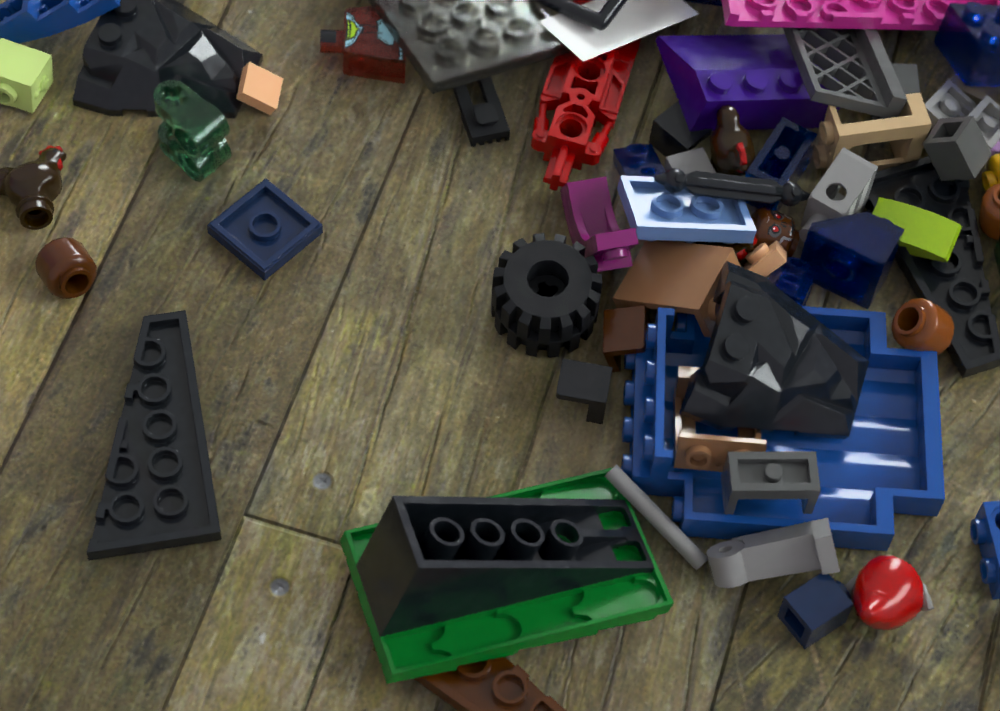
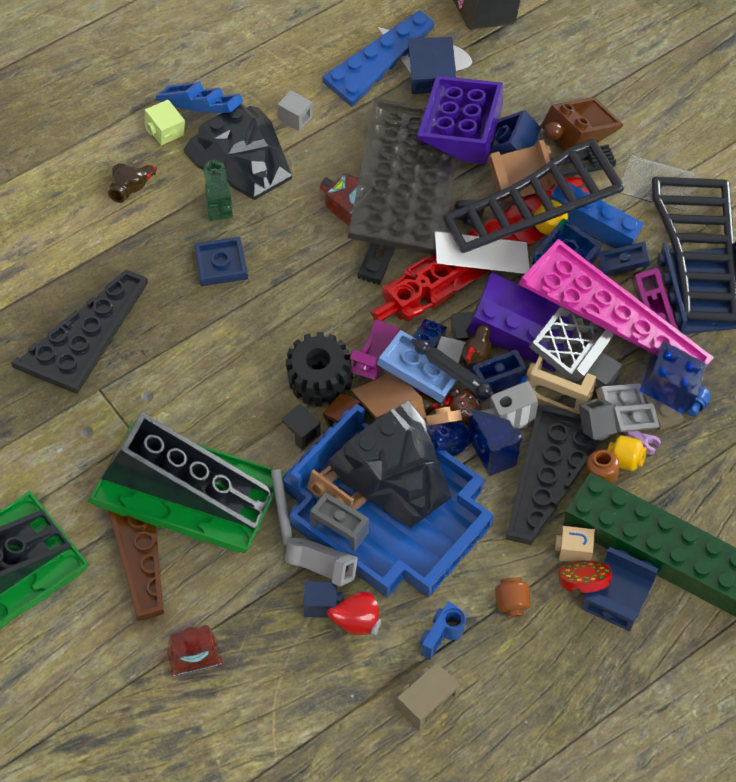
camera: 40 degrees right, 0 degrees up
(66, 268) = (111, 227): reddish brown head -> none
(259, 88) = (274, 191): light nougat tile -> none
(922, 326) = (497, 498): dark orange head -> none
(924, 233) = (539, 447): lime slope -> none

